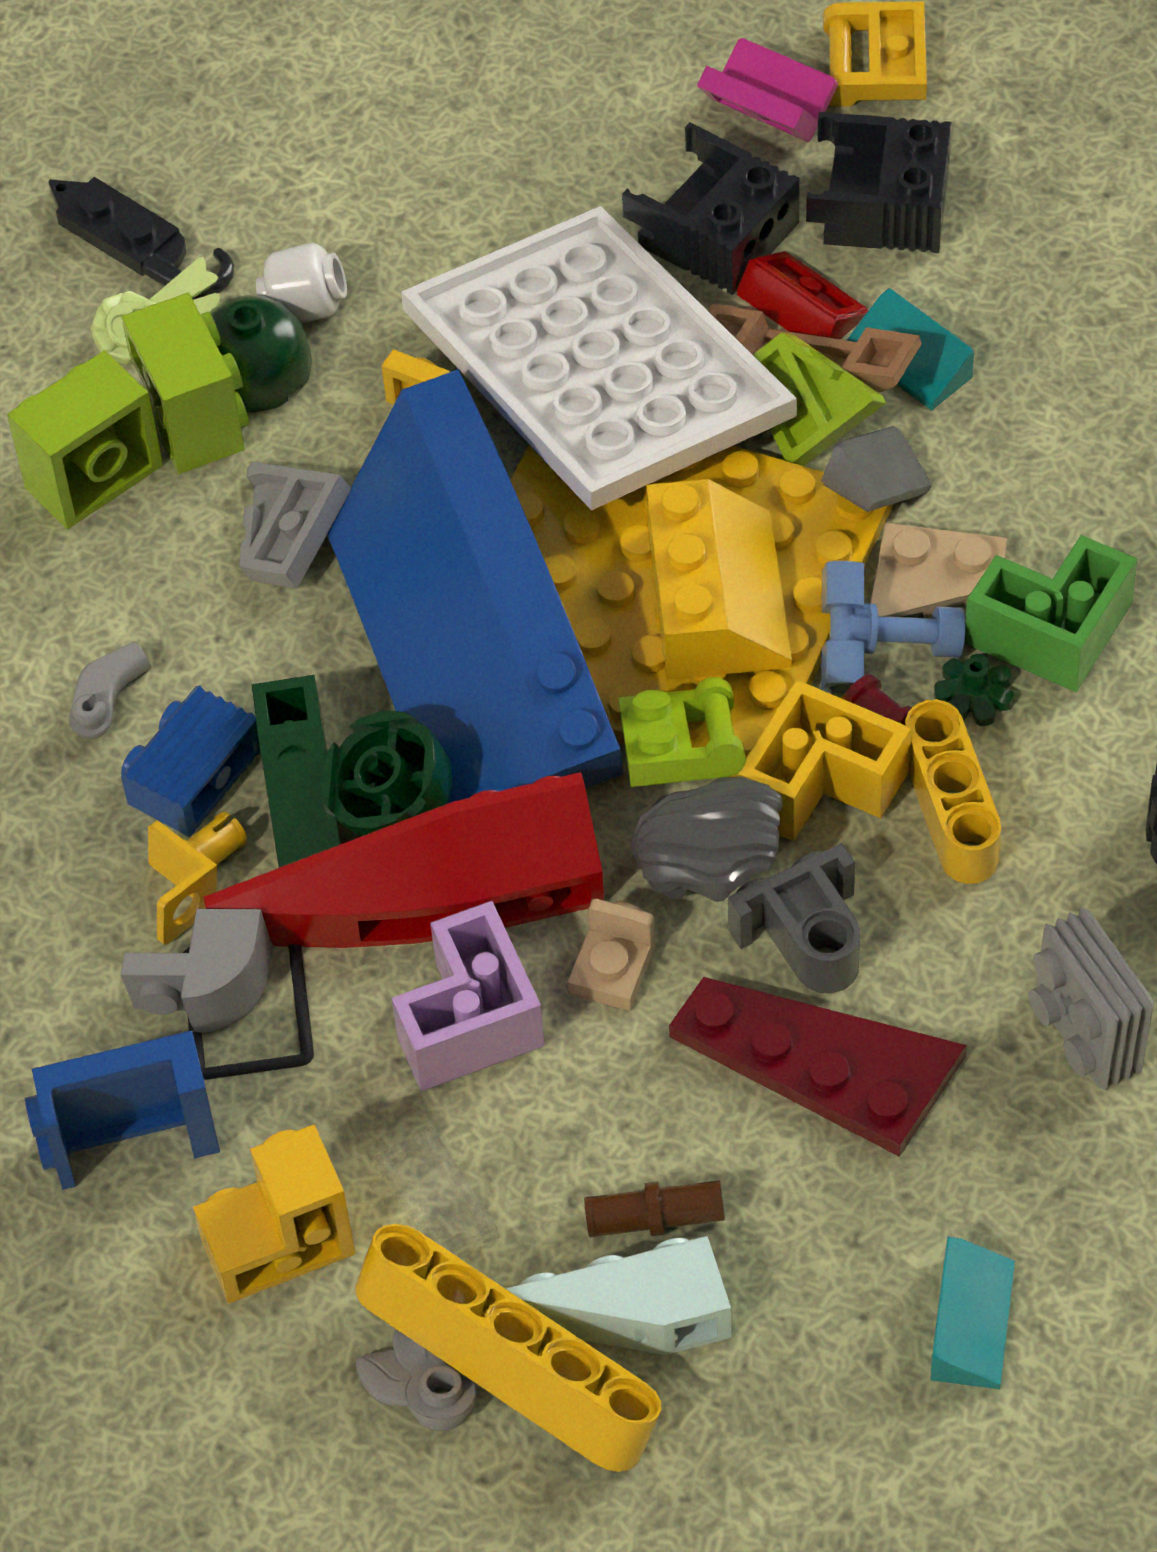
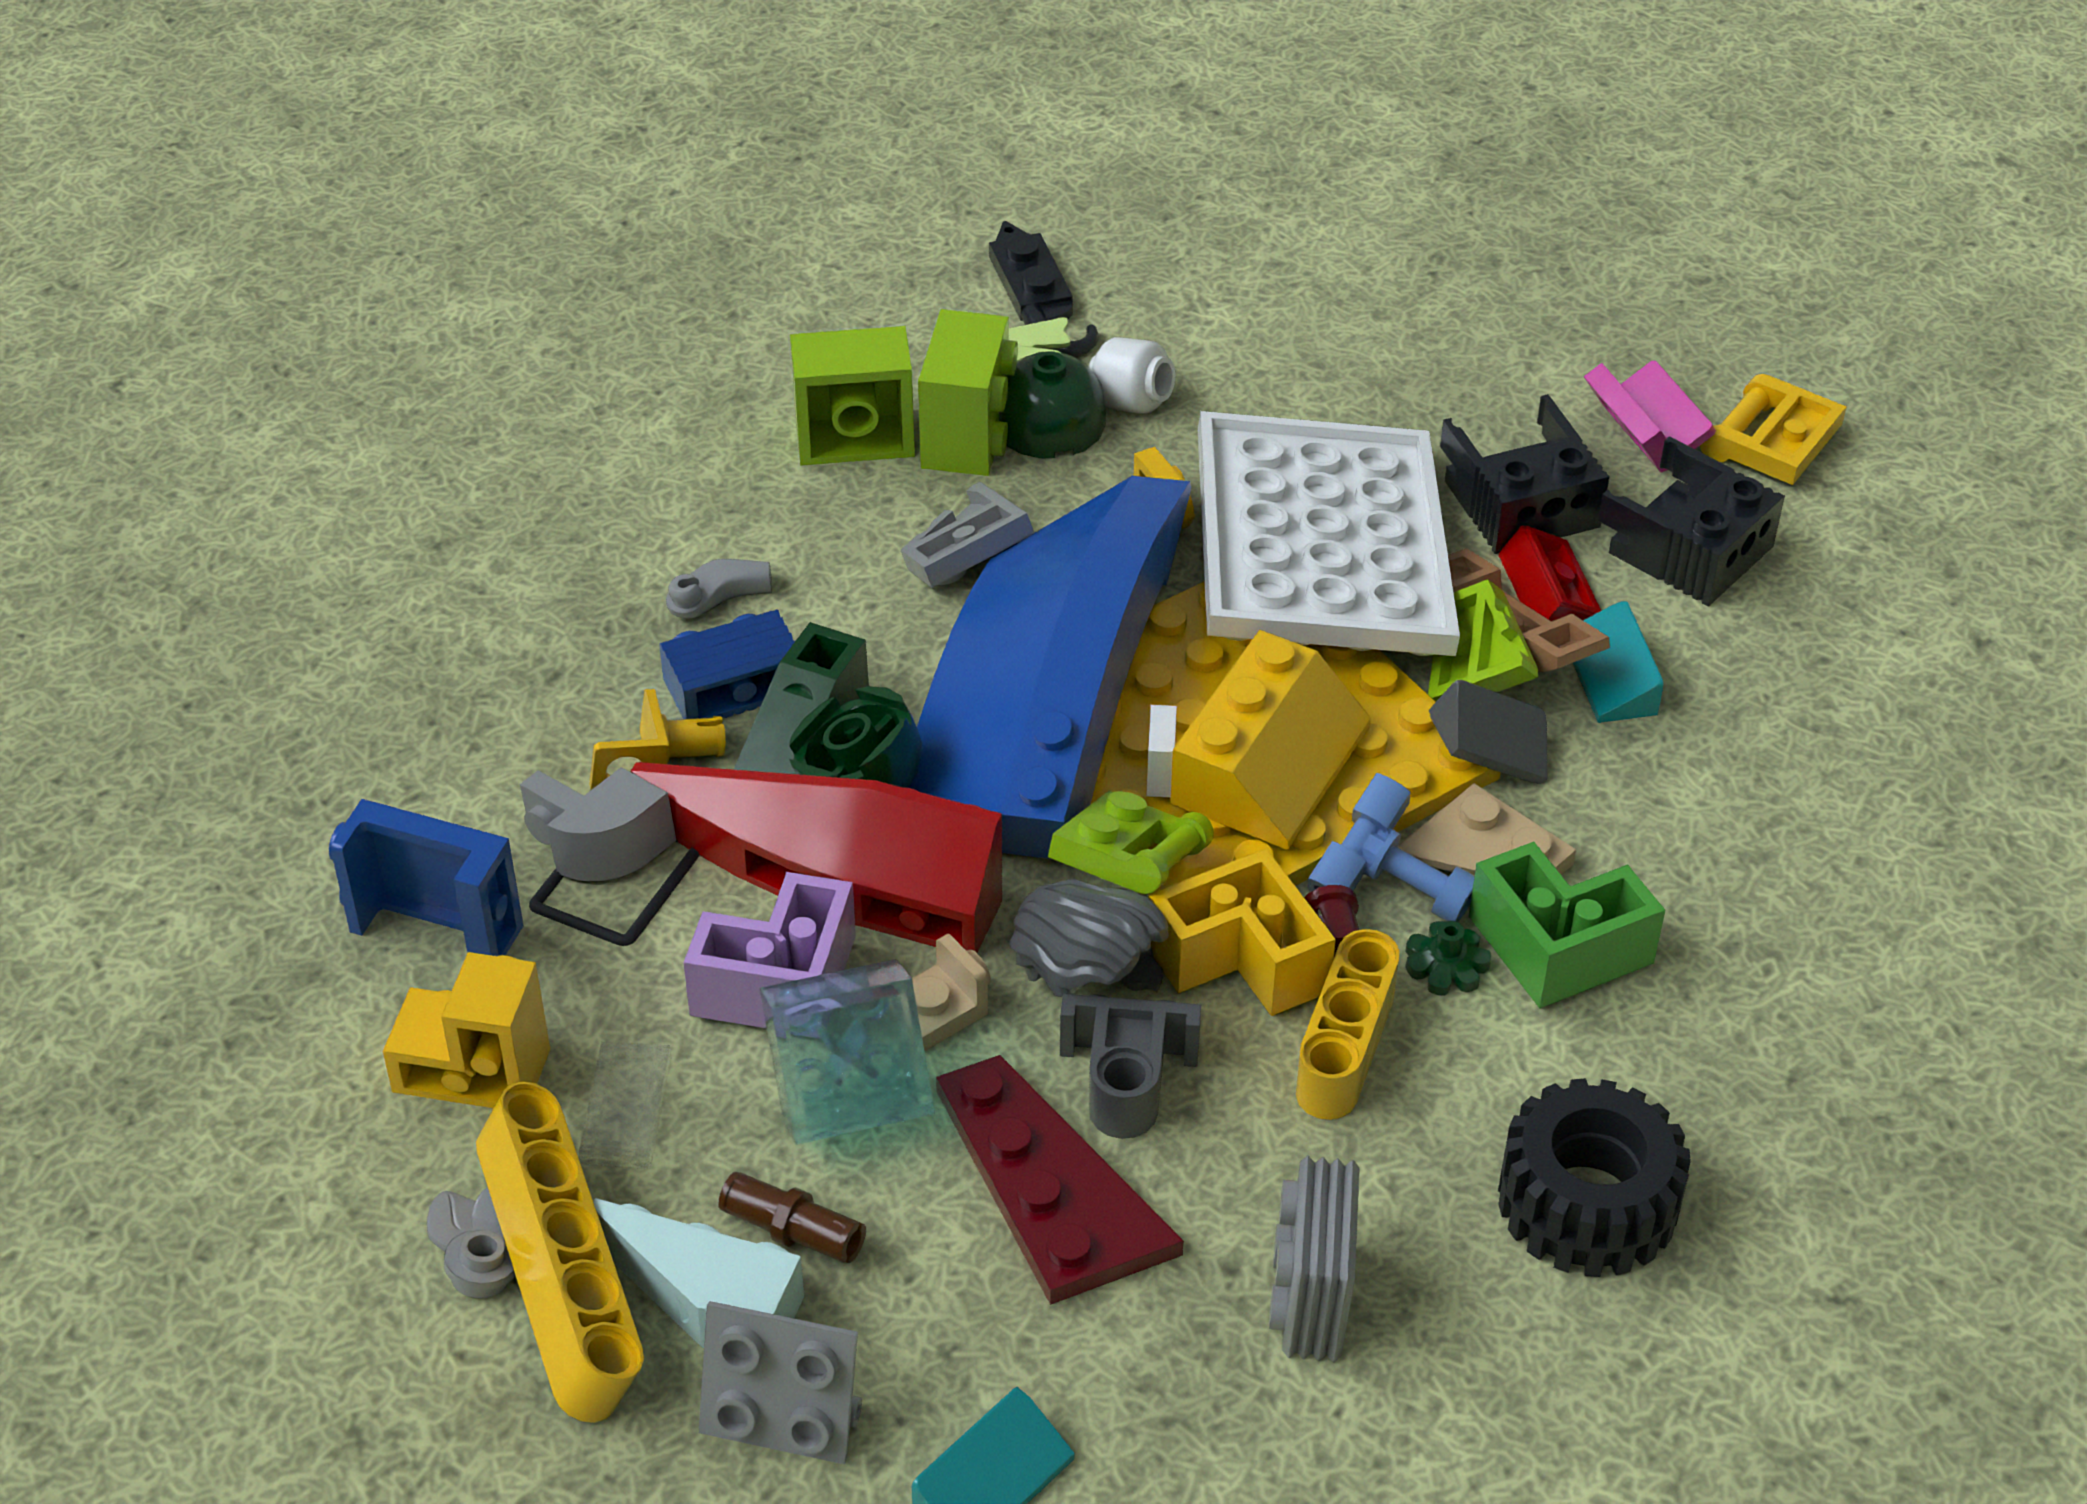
camera: 30 degrees right, 10 degrees down
(604, 1047) = (847, 1051): none -> clear light blue brick
(635, 637) = (1160, 750): none -> white tile
(772, 1345) = (778, 1382): none -> light grey hinge

